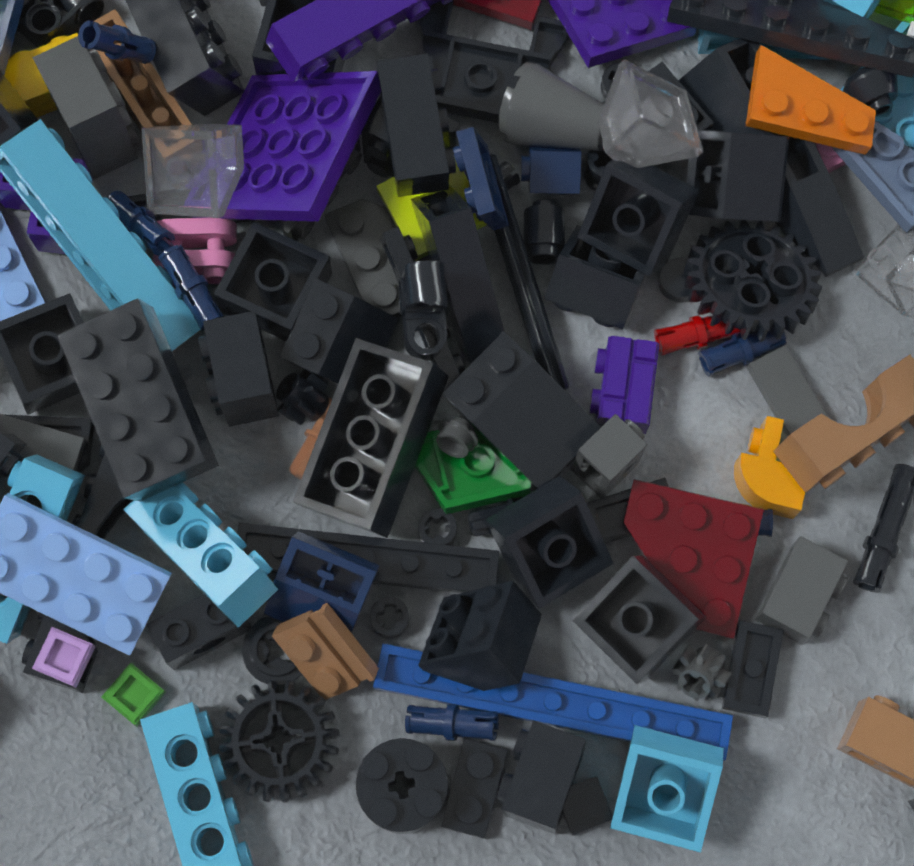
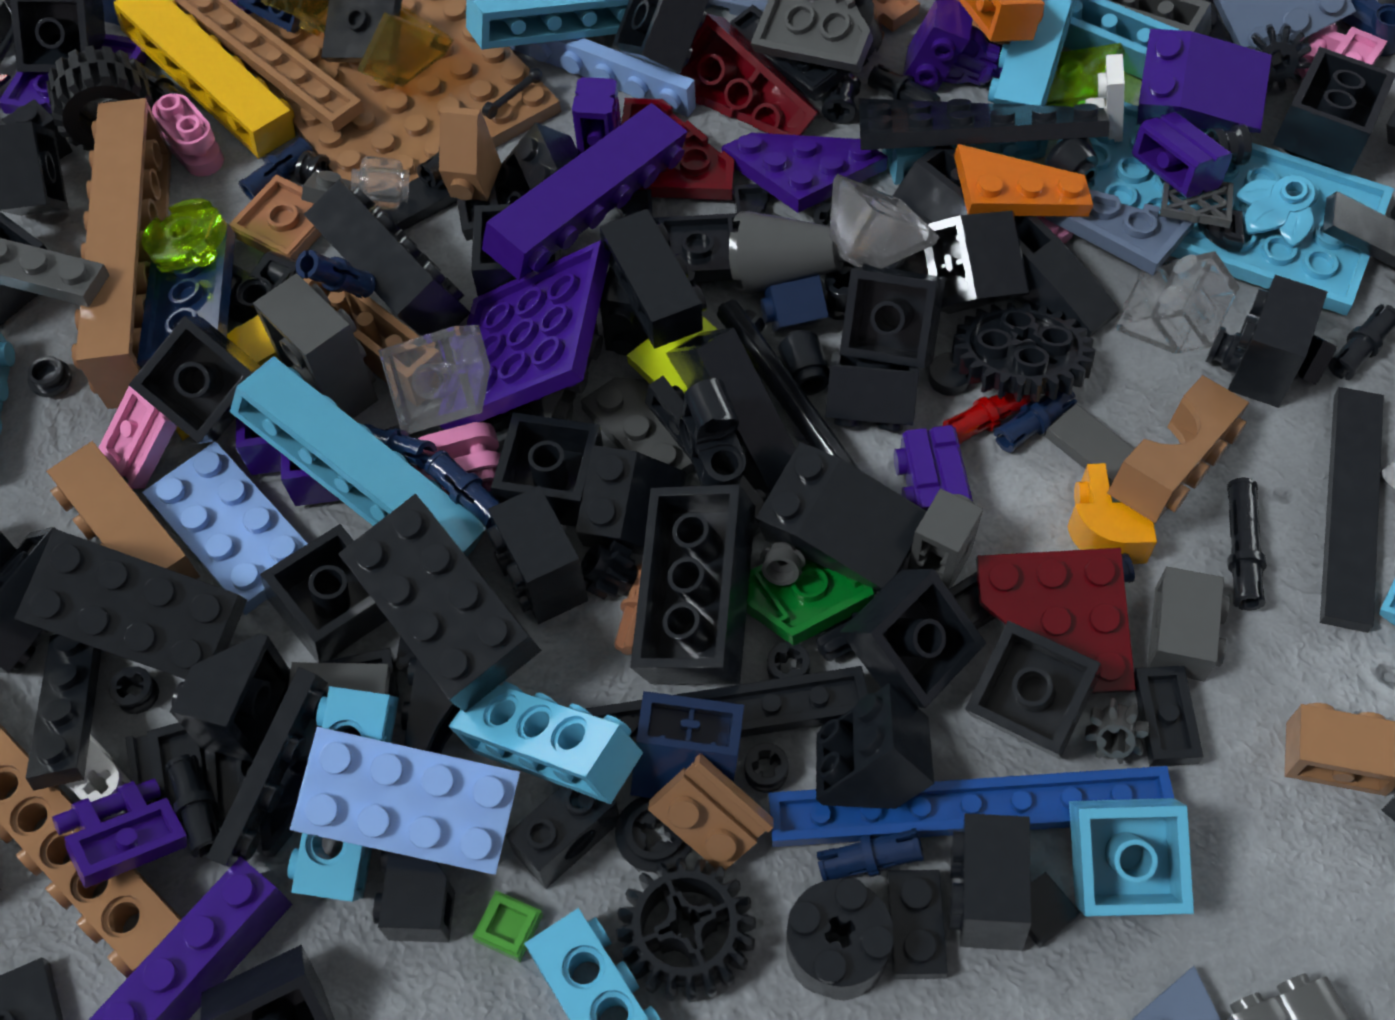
camera: 10 degrees left, 15 degrees down
(64, 657) = (421, 896): lavender tile -> none
(484, 193) = (731, 310): dark blue plate -> none

